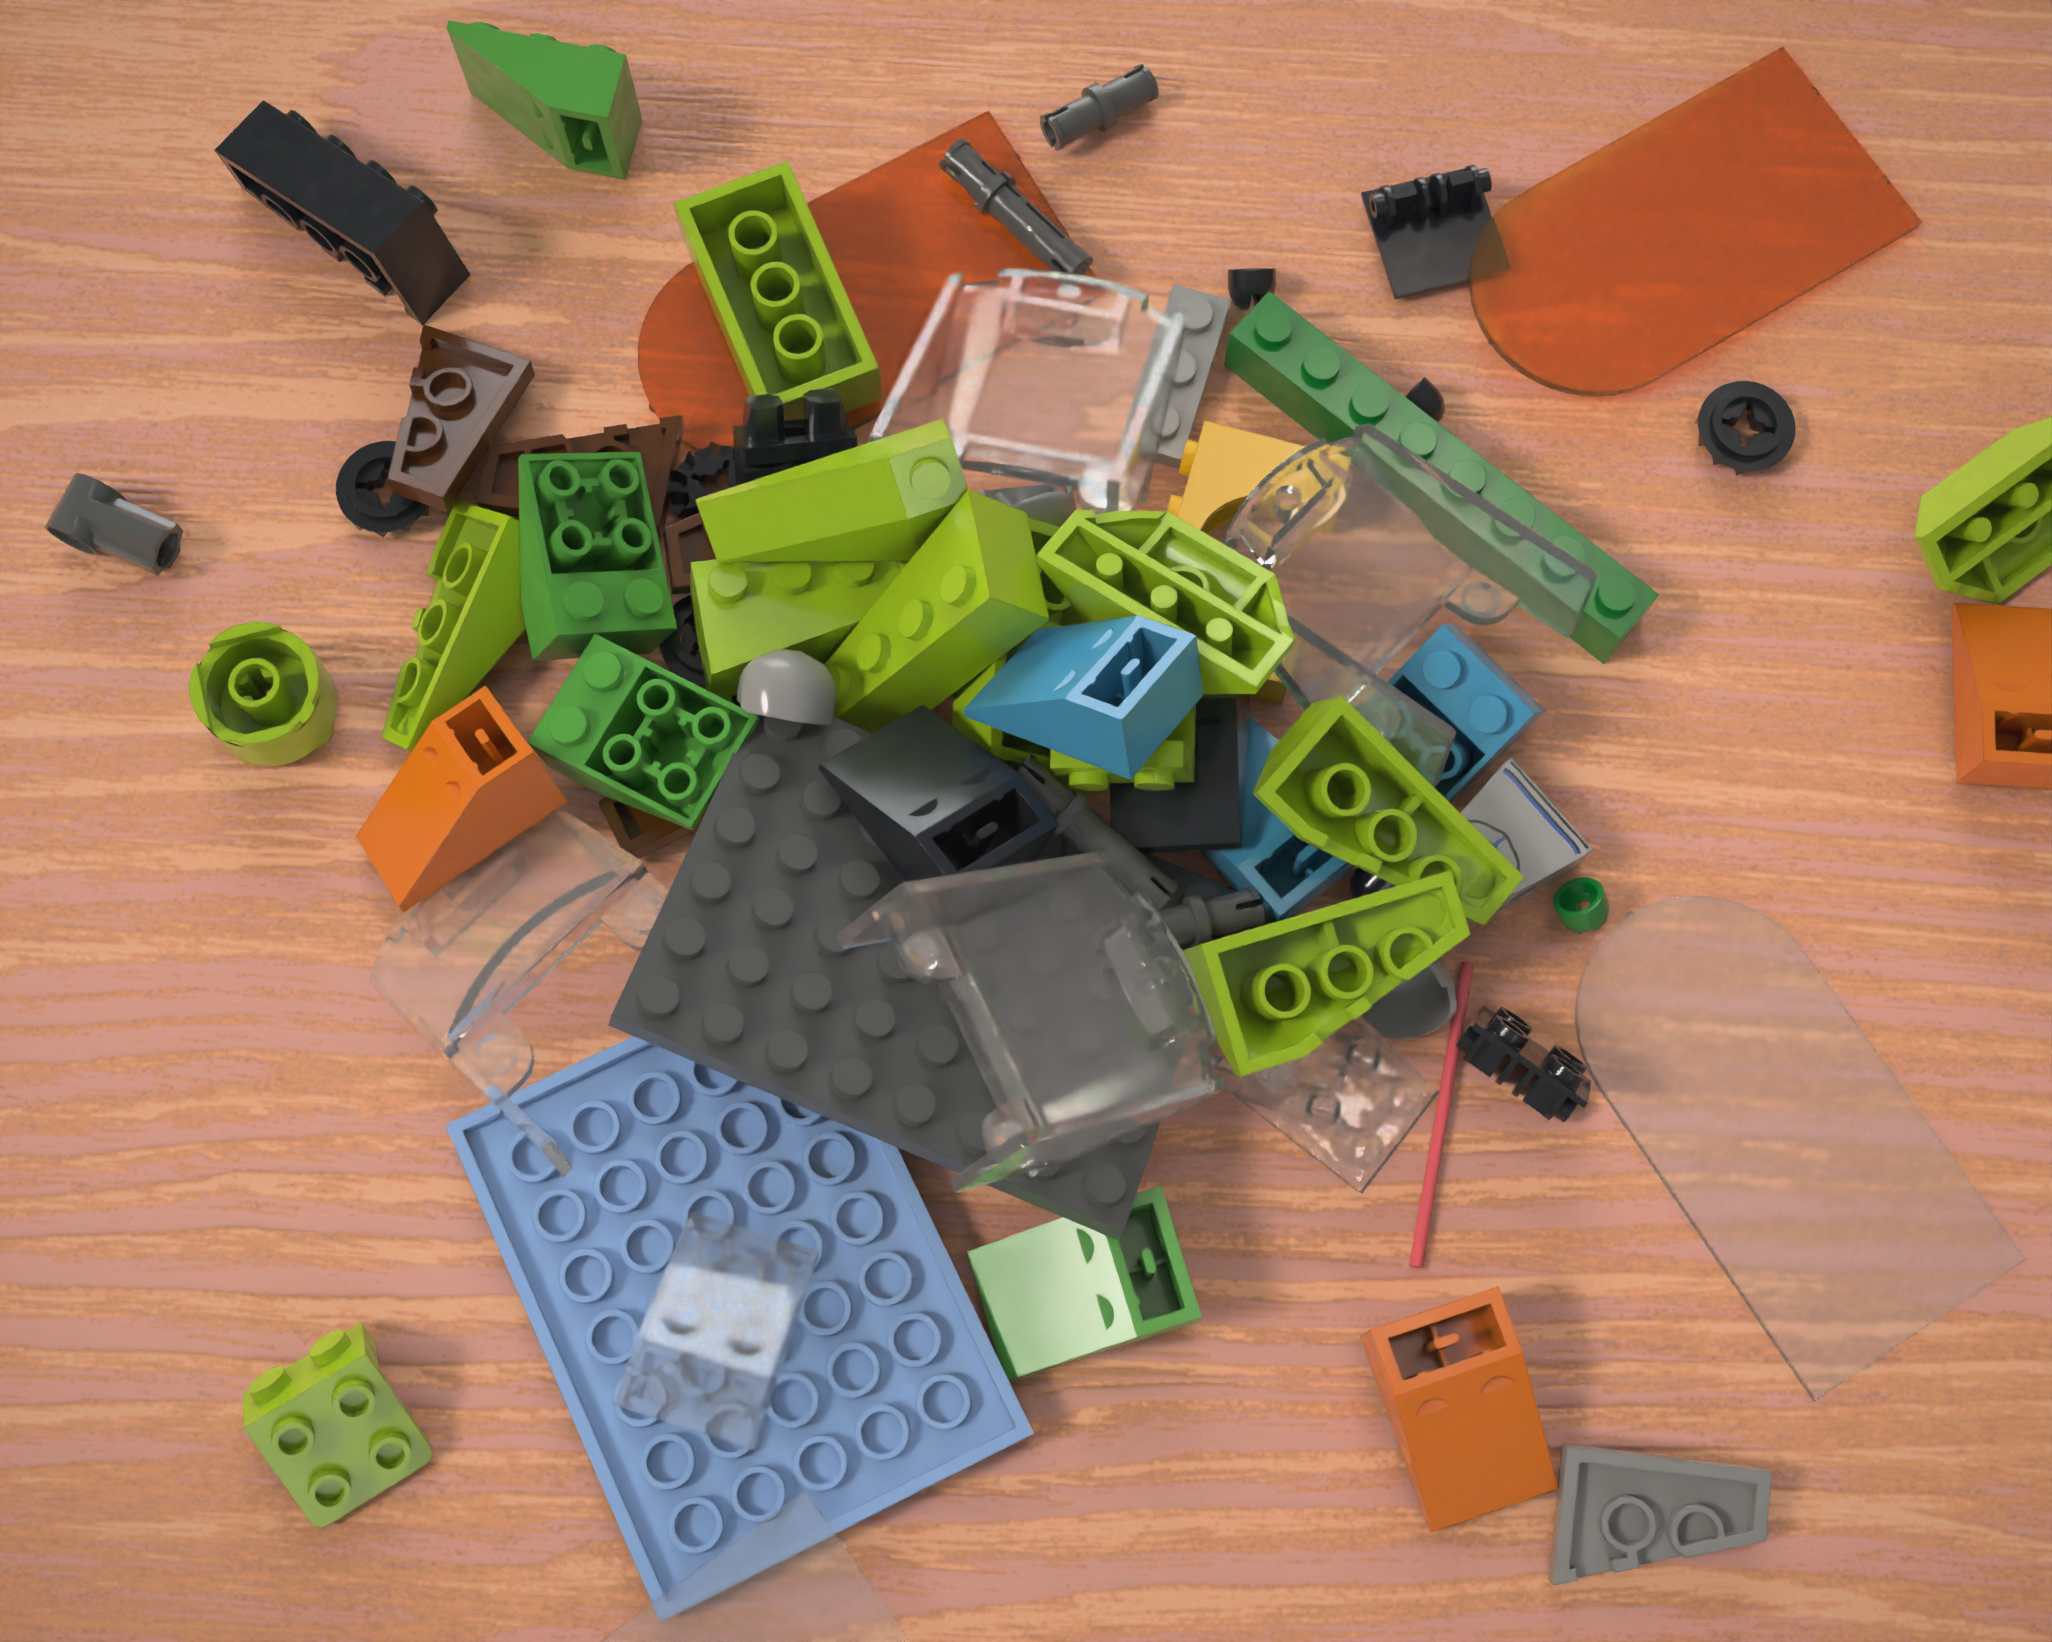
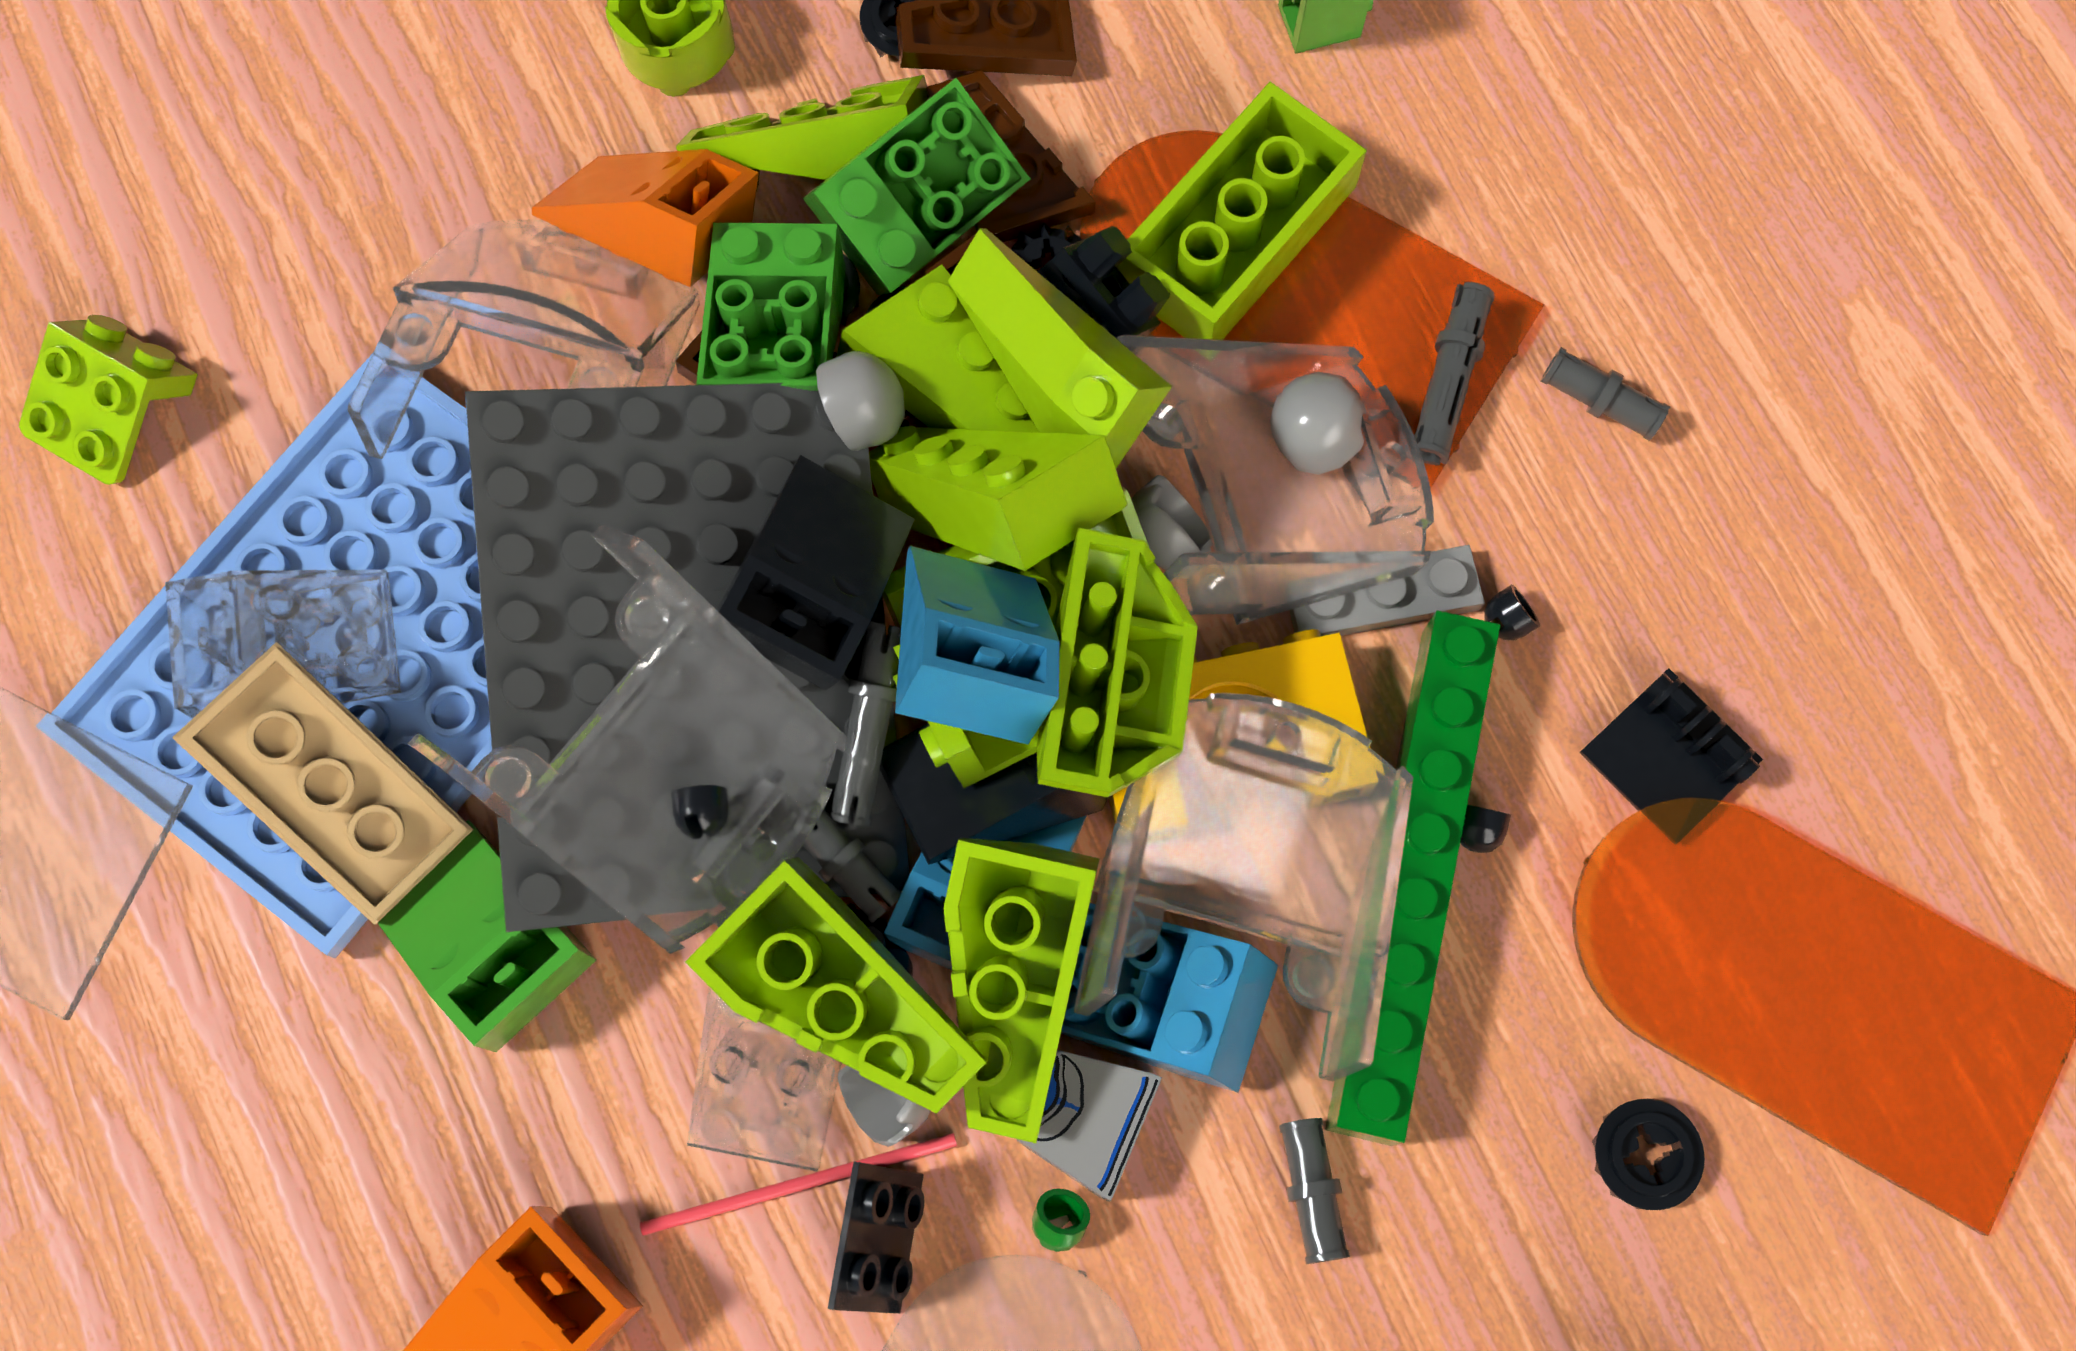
camera: 65 degrees right, 0 degrees up
(883, 1347) = (323, 783): none -> tan tile
(1007, 337) = (1318, 422): none -> light grey hair
(1107, 998) = (700, 810): none -> black hinge
(1653, 693) = (1314, 1190): none -> dark grey pin

